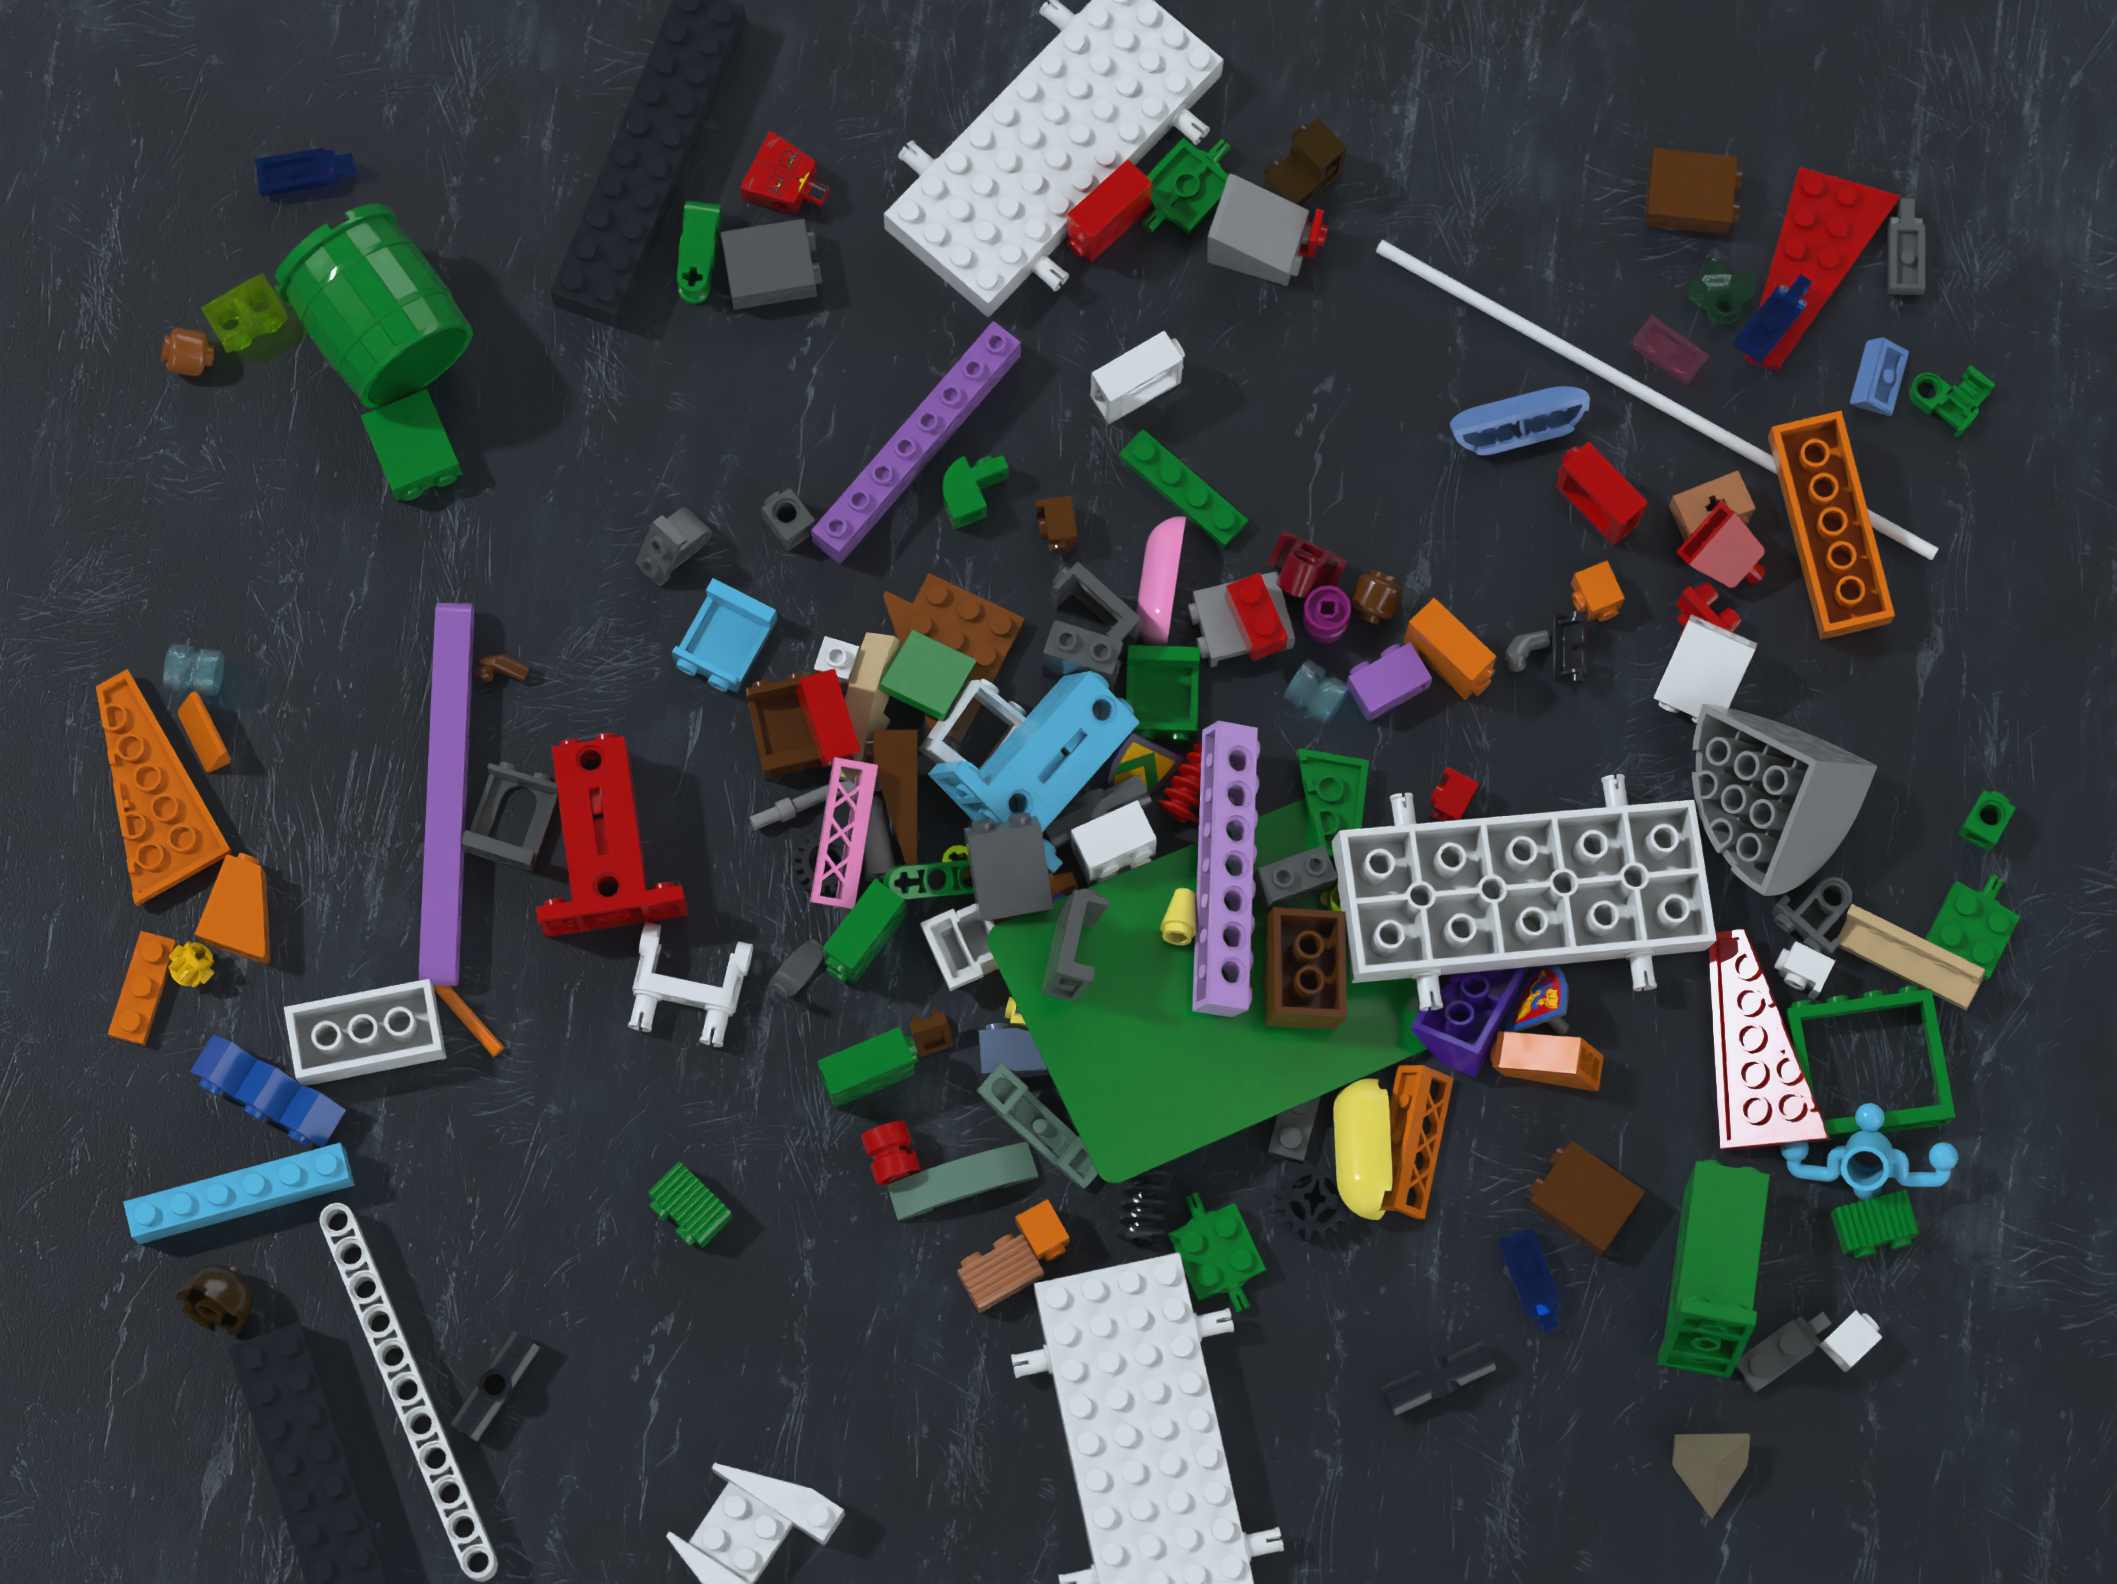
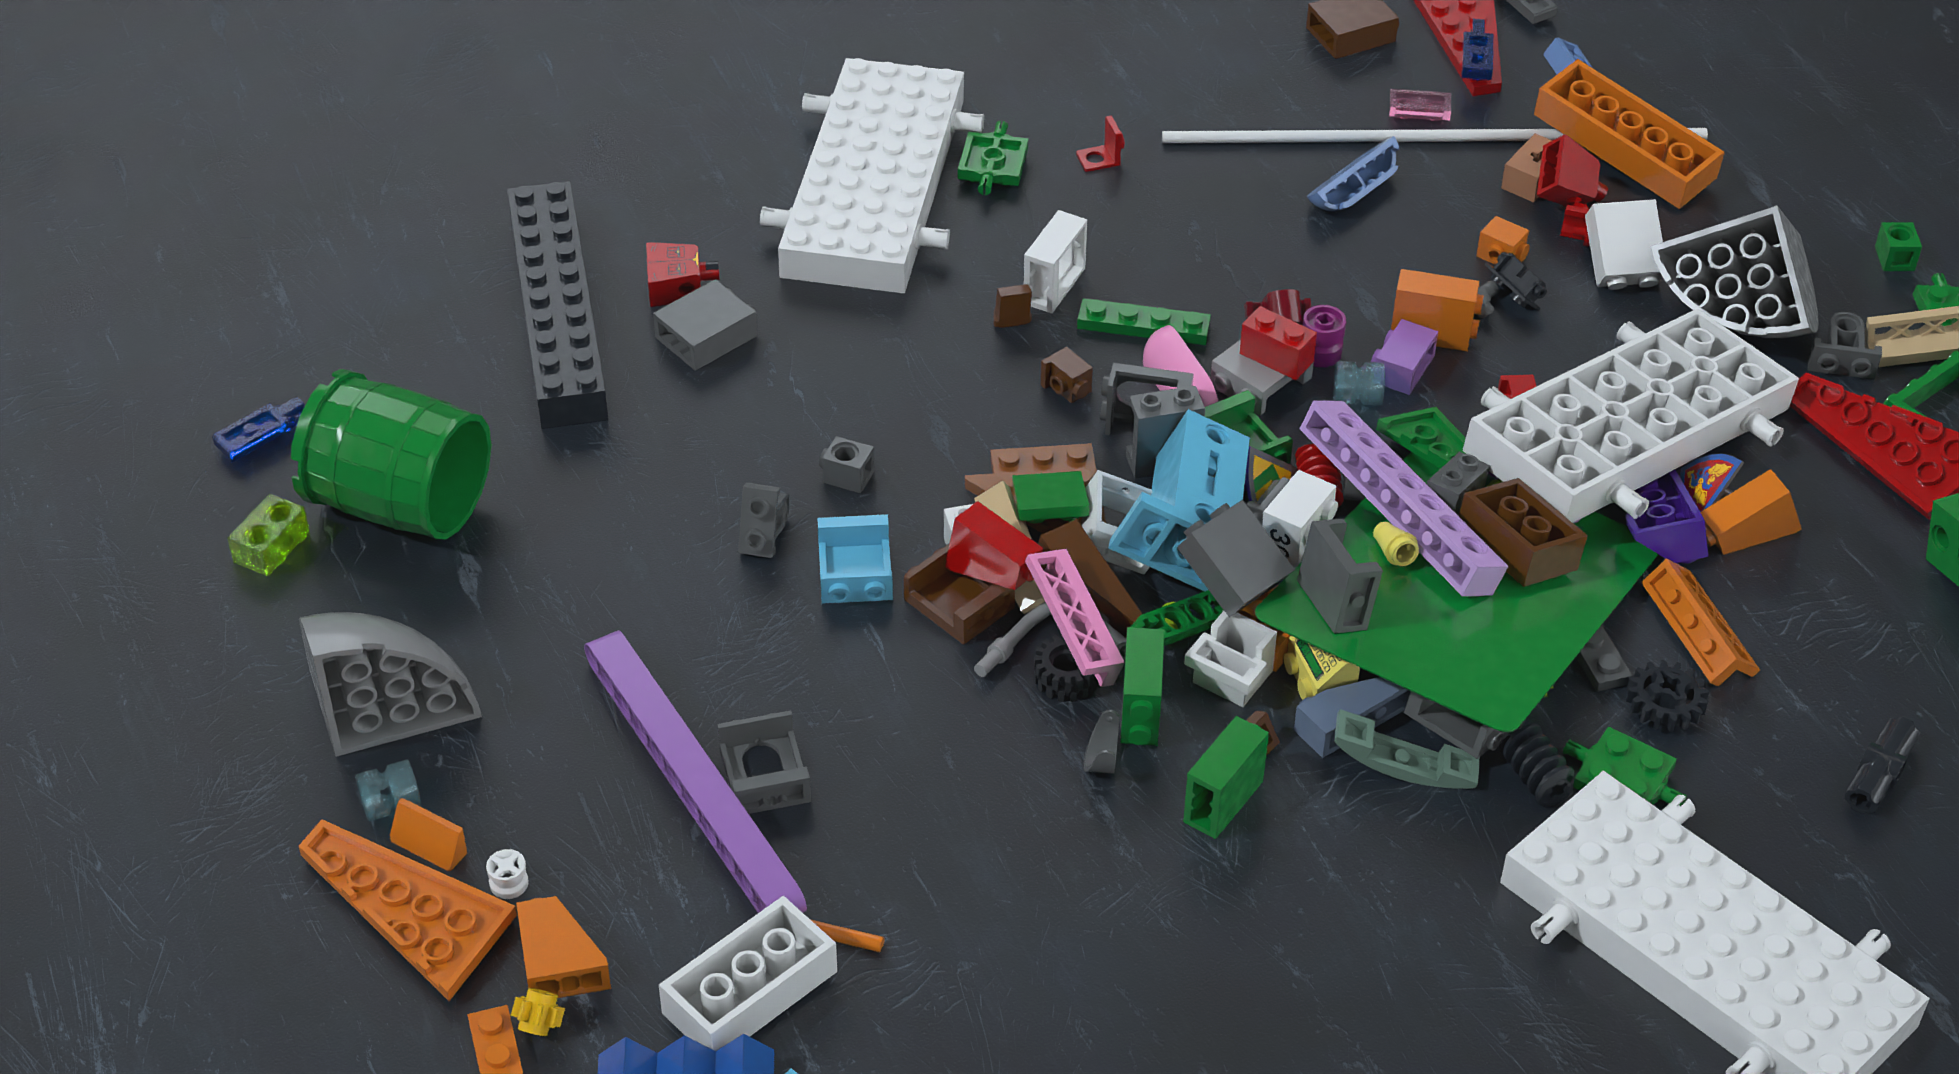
camera: 30 degrees left, 30 degrees down
(186, 352) = (231, 580): dark orange head -> none
(239, 550) = (381, 680): none -> light grey brick
(240, 803) = (507, 874): none -> white wheel
(412, 446) = (483, 555): green brick -> none
(500, 664) = (672, 664): reddish brown arm -> none
(603, 844) = (869, 733): red brick -> none
(689, 1206) = (1153, 964): green brick -> none
(698, 250) = (639, 341): green piece -> none
(717, 1001) = (996, 818): white connector -> none
(890, 1151) = (1301, 836): red wheel -> none
(916, 442) = (913, 378): medium lavender brick -> none
(962, 1179) = (1365, 830): sand green slope -> none
(963, 486) = (979, 385): green brick -> none
(999, 1272) = (1465, 874): nougat brick -> none
(1043, 1231) = (1474, 822): orange brick -> none
(1065, 404) = (1012, 306): none -> reddish brown tile
(1108, 211) = (950, 182): red brick -> none
(1258, 232) = (1069, 154): light grey slope -> none
(1311, 166) = (1074, 106): dark brown brick -> none
(1363, 1146) = (1675, 634): light yellow brick -> none
(1376, 597) = (1355, 308): reddish brown head -> none
(1531, 1278) = (1883, 664): clear blue hinge -> none
(1584, 1197) = (1866, 591): reddish brown brick -> none
(1600, 493) = (1457, 163): red window -> none
(1721, 288) = (1428, 67): clear green plate -> none
(1804, 968) = (1871, 378): white brick -> none
(1958, 403) = (1634, 57): green piece -> none

